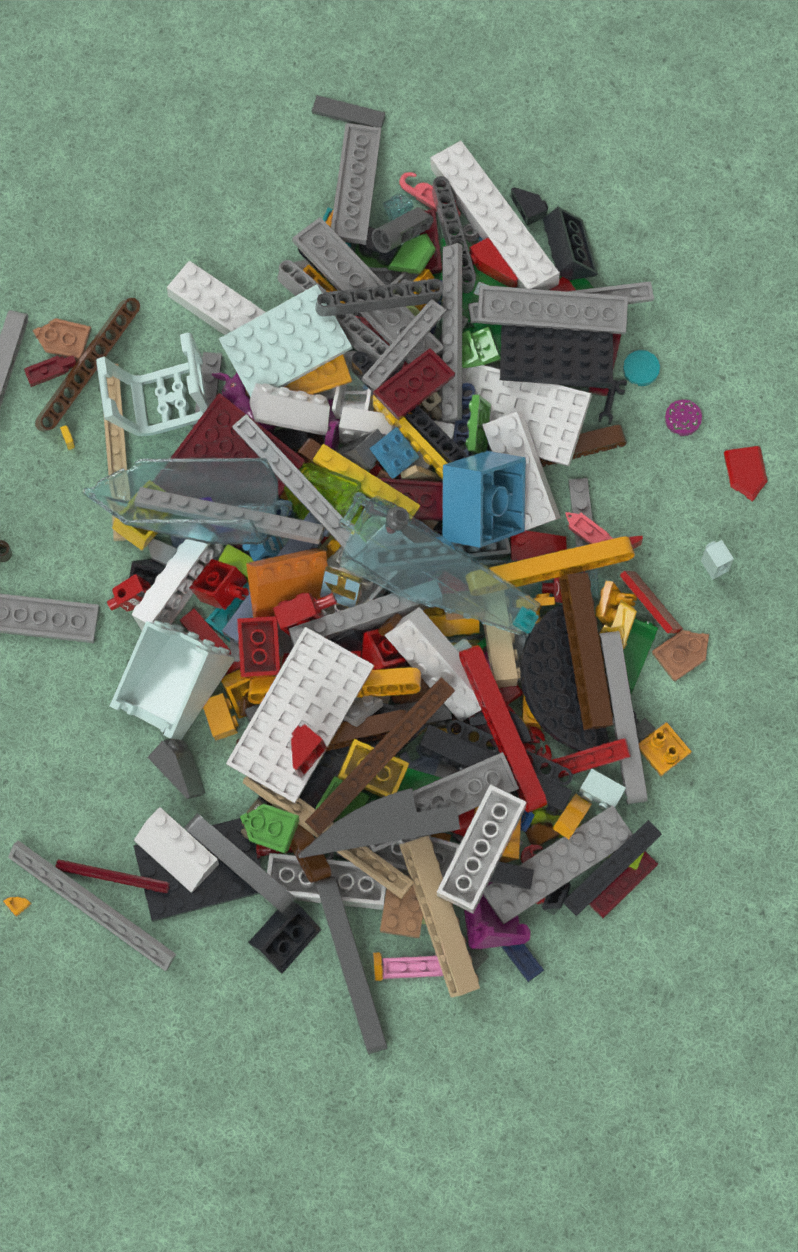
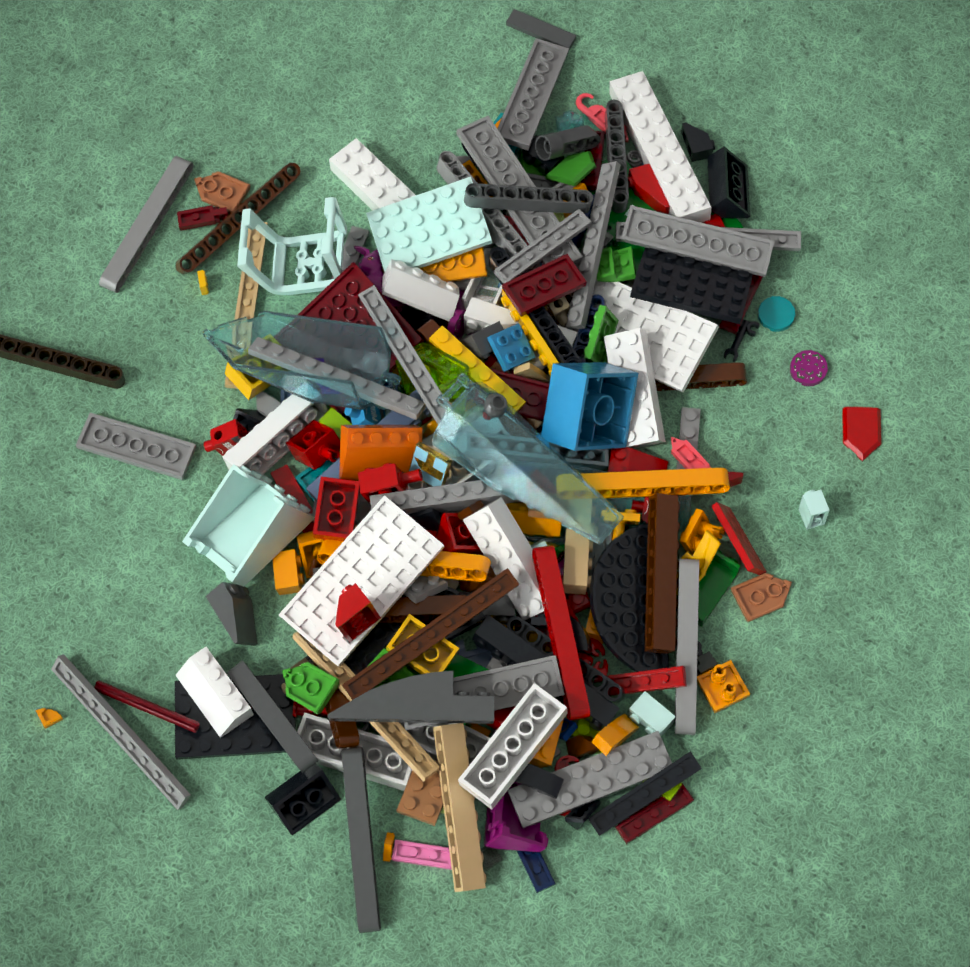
camera: 15 degrees right, 5 degrees down
(525, 619) = (604, 529): teal tile -> none

